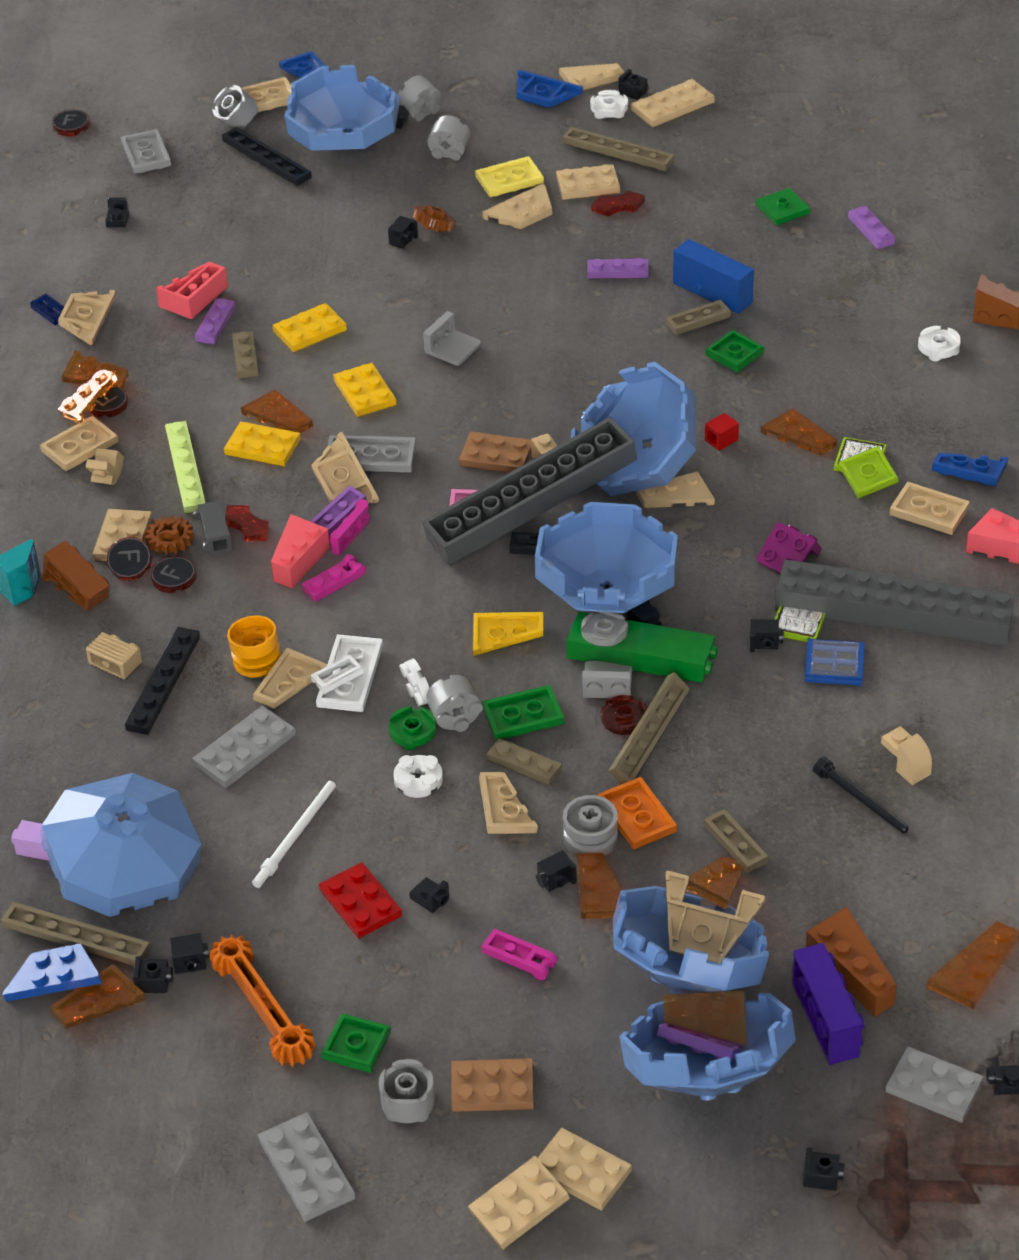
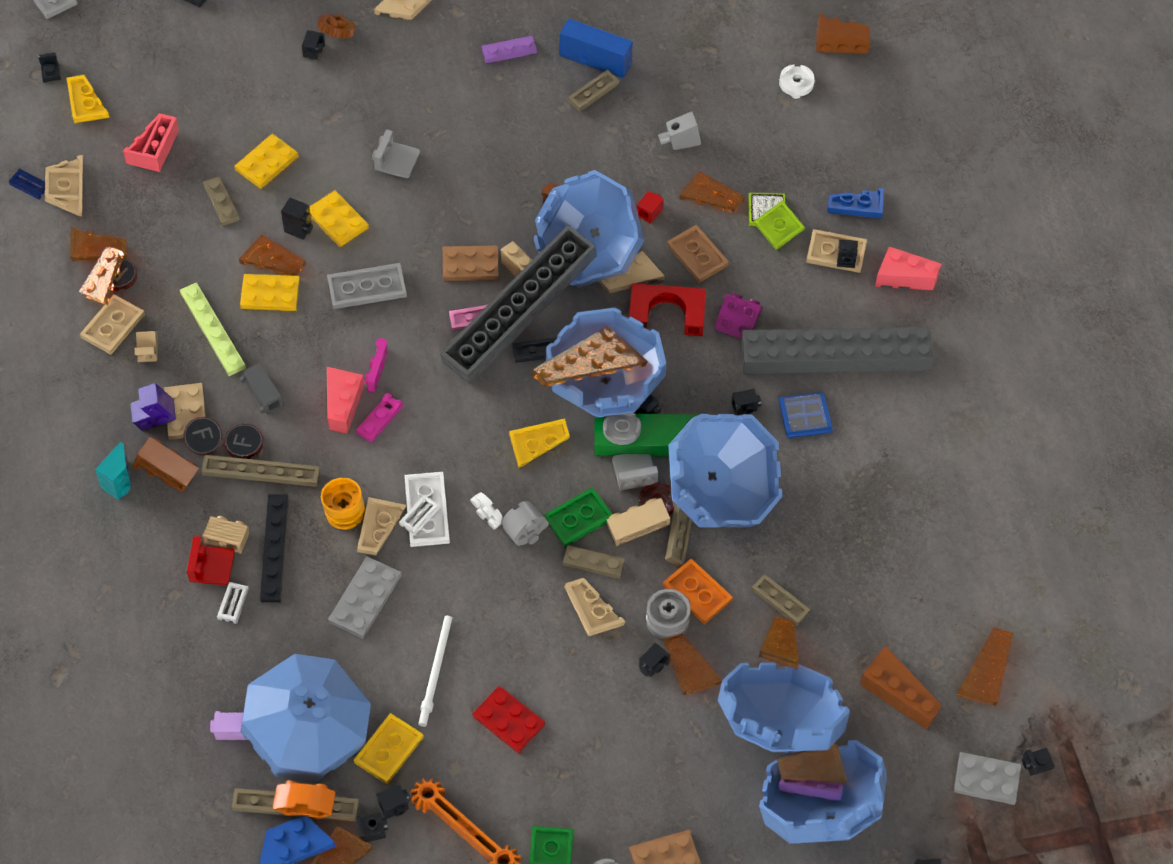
camera: 20 degrees left, 15 degrees up
(81, 680) = (209, 564): none -> red bracket
(82, 924) = (304, 799): none -> orange brick
(85, 518) = (153, 407): none -> dark purple brick
(97, 724) = (229, 617): none -> white tile
(139, 246) = (83, 101): none -> yellow wing
(169, 535) = (227, 404): dark orange gear -> none
(178, 603) = (261, 470): none -> dark tan plate
(206, 899) = (388, 748): none -> yellow plate
(215, 321) = (181, 170): medium lavender plate -> none
(251, 527) = (292, 380): clear red tile -> none
(316, 377) = (296, 218): none -> black brick
(340, 508) = (361, 351): medium lavender plate -> none
(341, 468) = (353, 314): tan wing -> none
(412, 737) = (492, 540): green plate -> none
(418, 764) = (514, 583): white plate -> none
(430, 894) = (562, 702): black bracket -> none
(519, 953) = (648, 740): dark pink plate -> none
(590, 547) = (592, 357): none -> clear orange wing
(590, 727) = (638, 521): none -> tan brick
(702, 927) = (786, 694): tan wing -> none
(721, 664) = (744, 470): none -> medium blue windscreen
(734, 351) = (634, 120): green plate -> none
(736, 526) = (690, 300): none -> red arch
(761, 484) = (697, 253): none -> medium nougat plate
(783, 367) = (681, 132): none -> light grey torso
(800, 623) = (767, 384): tile -> none
(825, 769) = (829, 519): black piece -> none
(827, 1003) = (894, 732): dark purple brick -> none
(912, 754) = (892, 492): tan brick -> none
(938, 506) = (847, 253): none -> black brick

